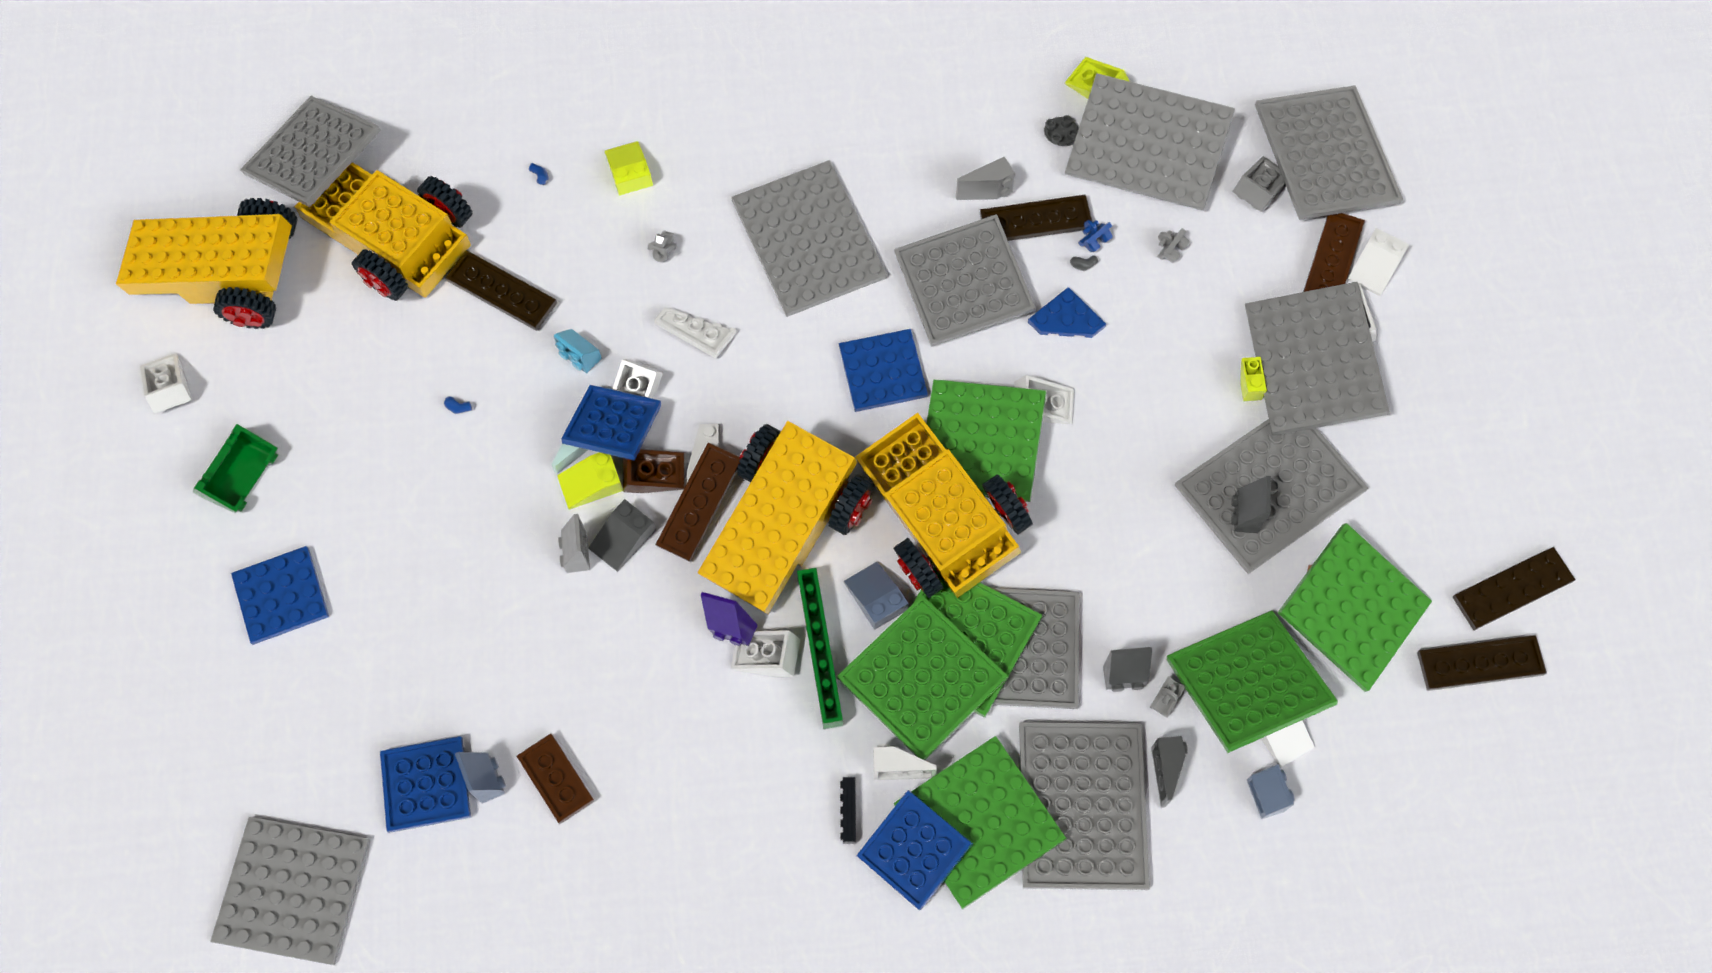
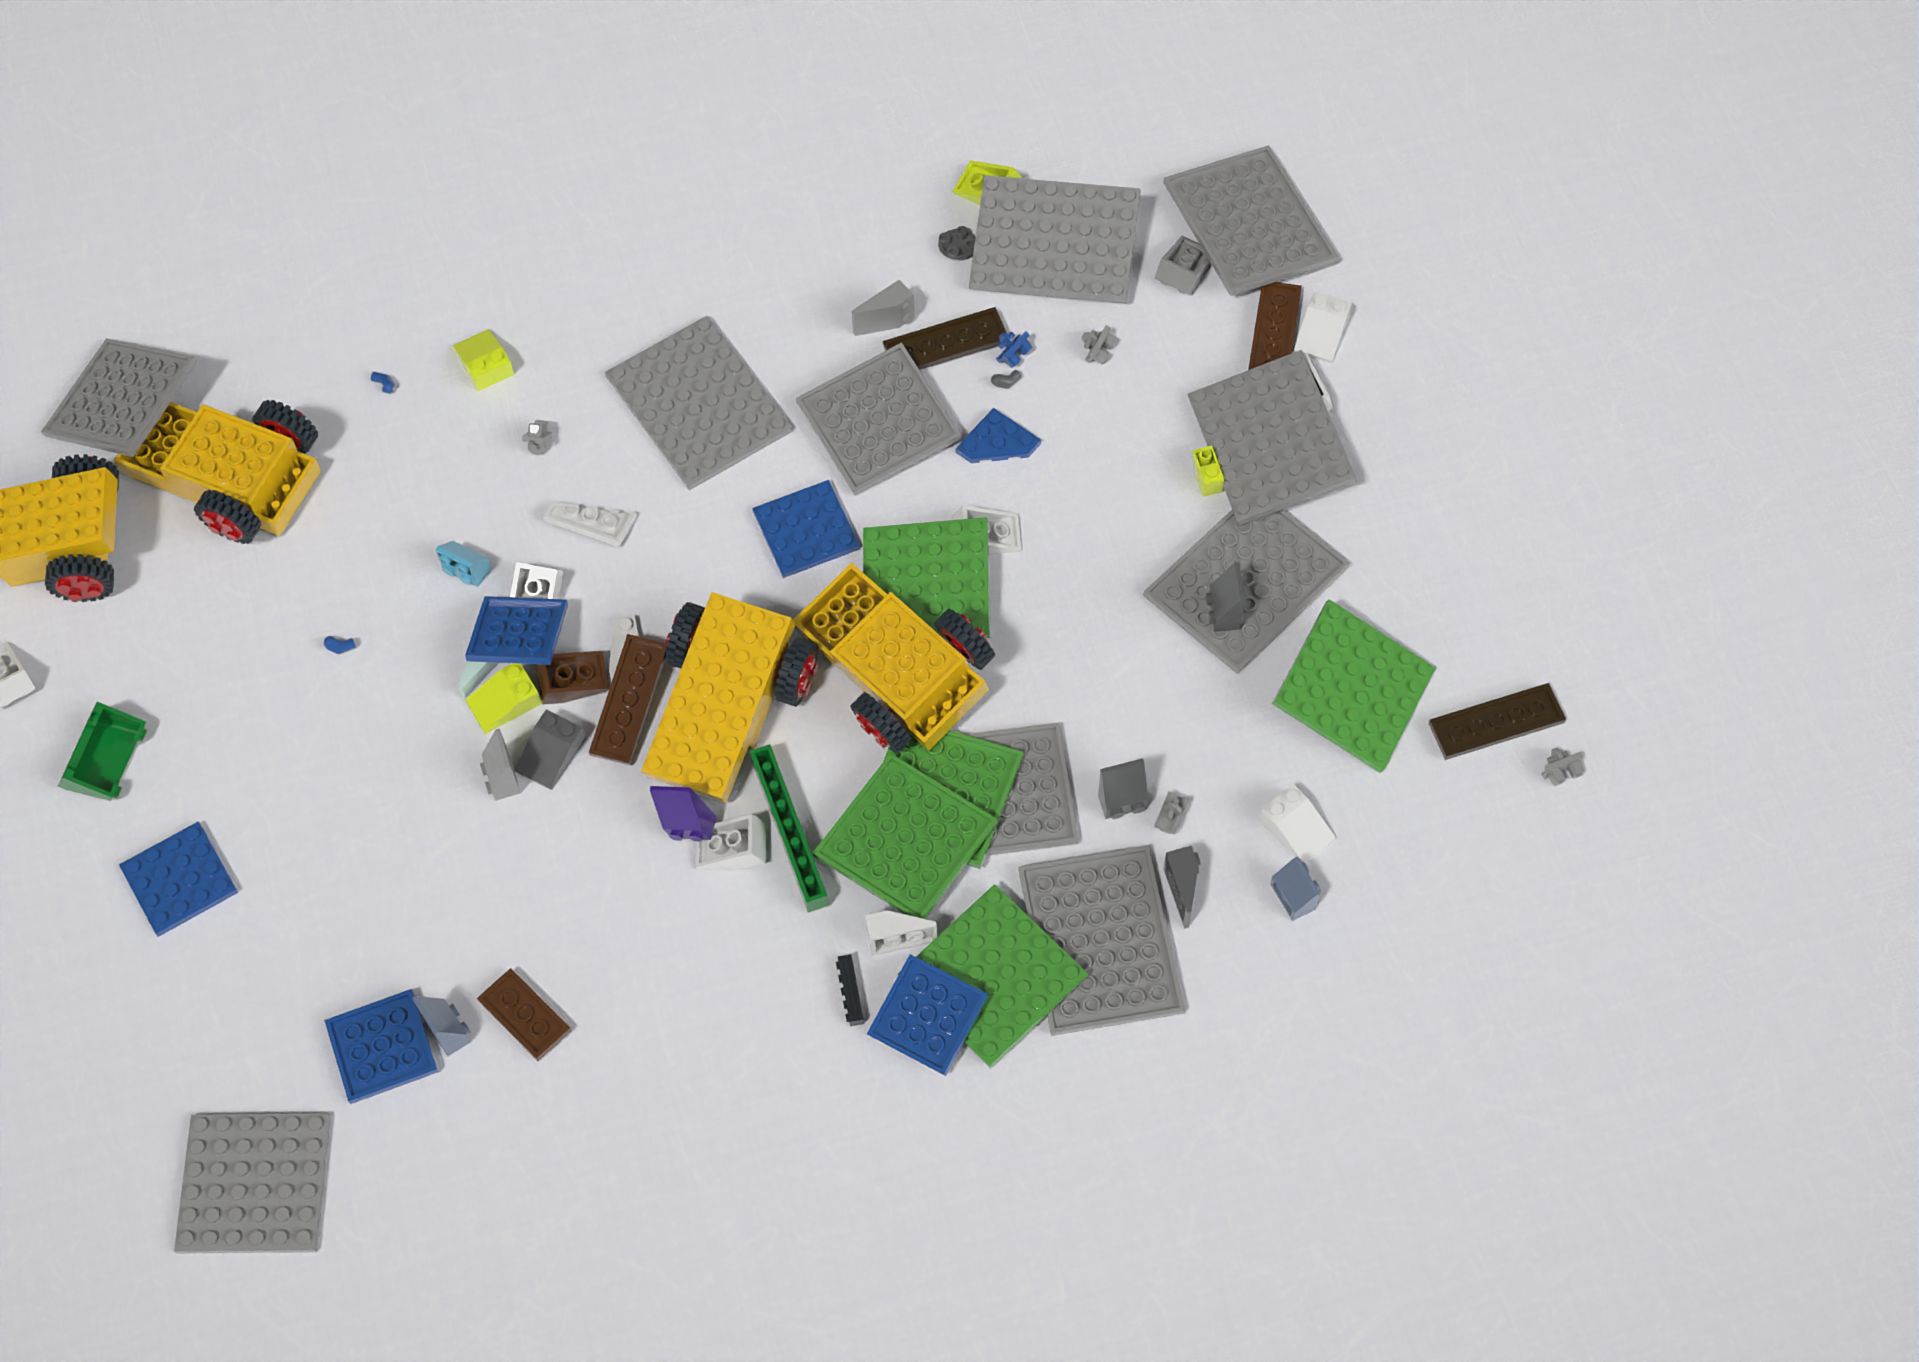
camera: 10 degrees left, 5 degrees down
(501, 290) = (365, 513): dark brown plate -> none
(876, 595) = (841, 764): sand blue slope -> none
(1251, 681) = (1255, 779): bright green plate -> none
(1513, 588) = (1519, 640): dark brown plate -> none
(1529, 720) = (1561, 763): none -> light grey hips

